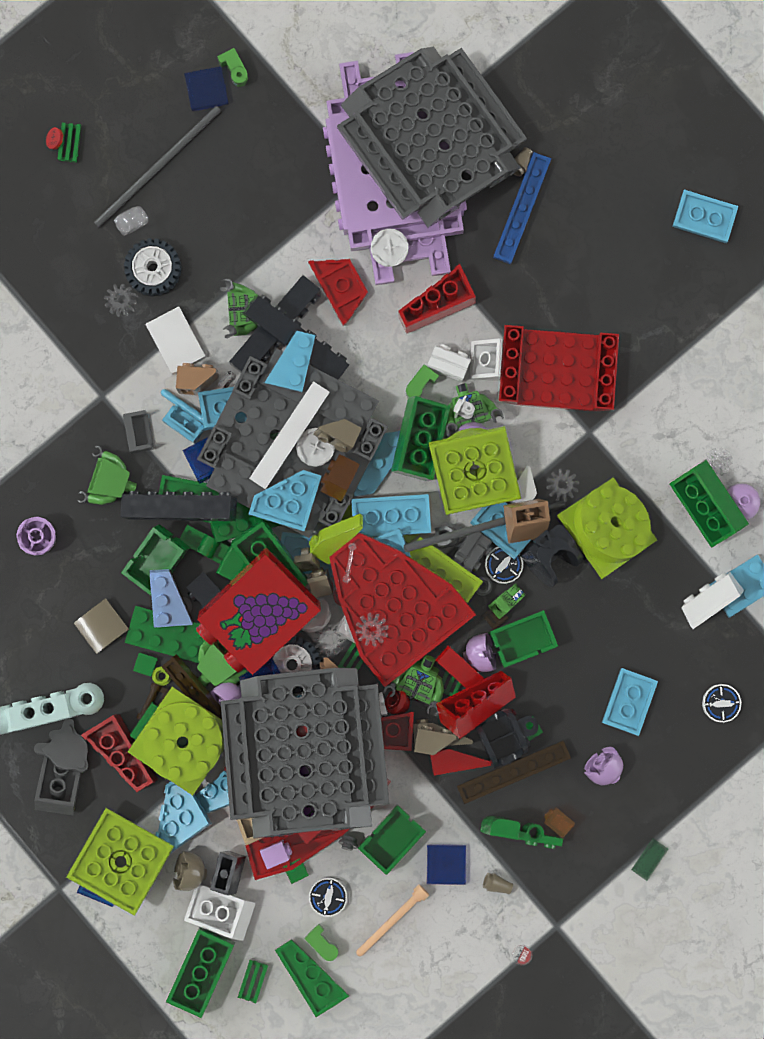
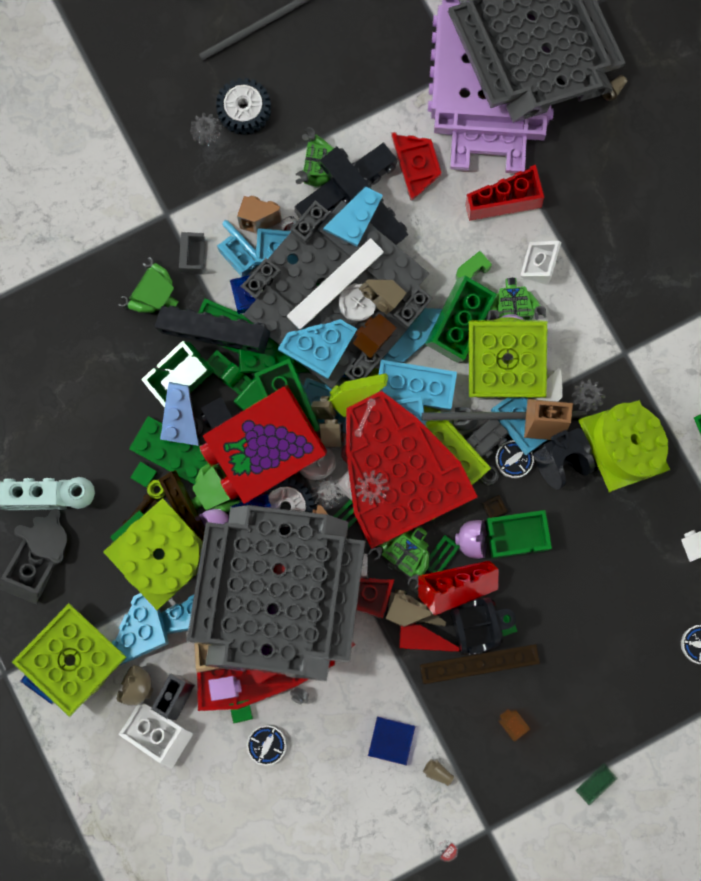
camera: 15 degrees right, 5 degrees down
(36, 536) = (69, 326): lavender cylinder -> none
(101, 626) = (110, 428): dark tan slope -> none
(113, 741) = (91, 538): red wedge -> none
(131, 220) = (234, 58): clear gear -> none
(175, 339) = (248, 175): white tile -> none
(200, 972) = (121, 790): green brick -> none
(247, 997) = (163, 827): green tile -> none
(312, 981) = (230, 826): green wing -> none
(325, 949) = (247, 790): bright green leg -> none
(389, 247) = (471, 134): white tile -> none
(391, 839) = (343, 702): green piece -> none
(398, 703) = (380, 568): red cone -> none
(418, 895) = (357, 764): light nougat piece -> none
(449, 363) = (504, 256): white brick -> none
(458, 668) = (448, 547): red slope -> none
(464, 408) = (510, 297): white hinge -> none
(507, 600) = (510, 494): bright green leg -> none
(511, 829) = (465, 719): green plate -> none
(522, 208) = (605, 129): blue plate -> none
(558, 369) = (608, 286): red slope -> none
(604, 768) = (571, 681): lavender cylinder -> none
(629, 701) = (609, 621): medium azure plate -> none

